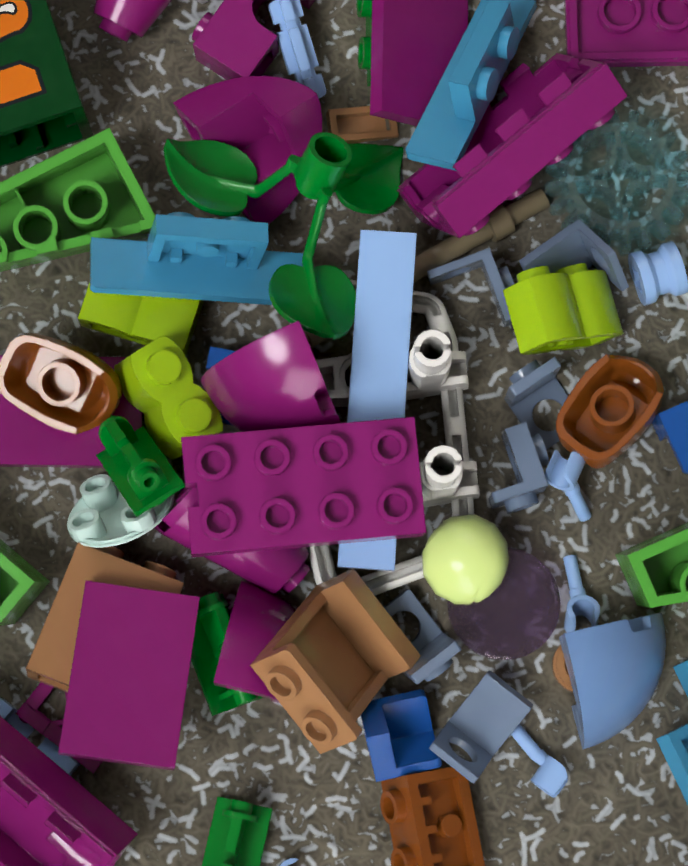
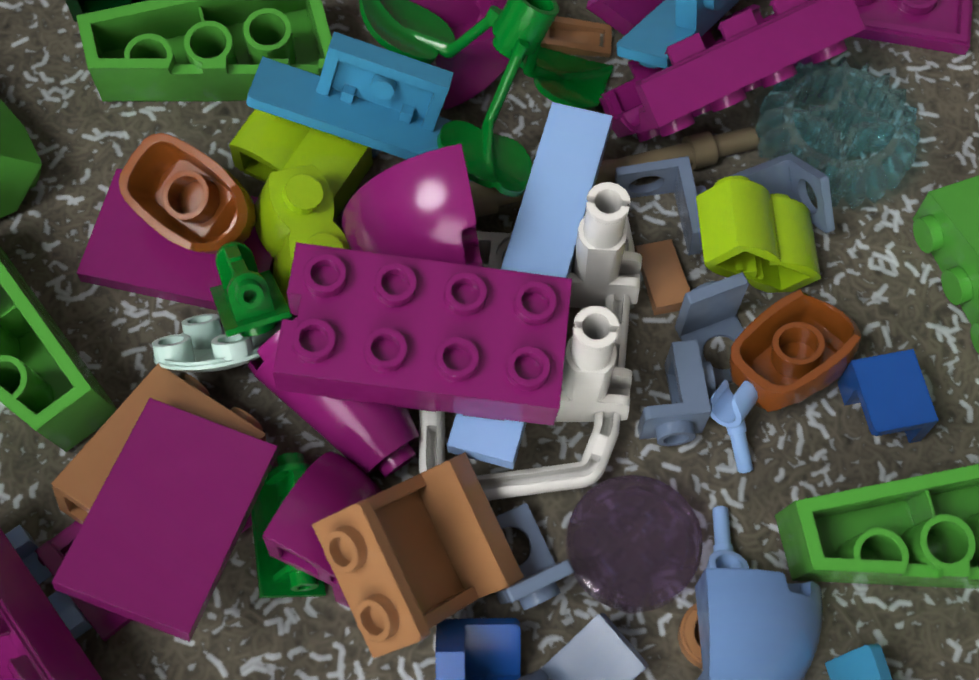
camera: 10 degrees right, 15 degrees down
(465, 559) = (598, 475): yellowish green hair -> none
(486, 353) = (663, 276): none -> medium nougat piece
(658, 273) = (868, 226): light blue wheel -> none

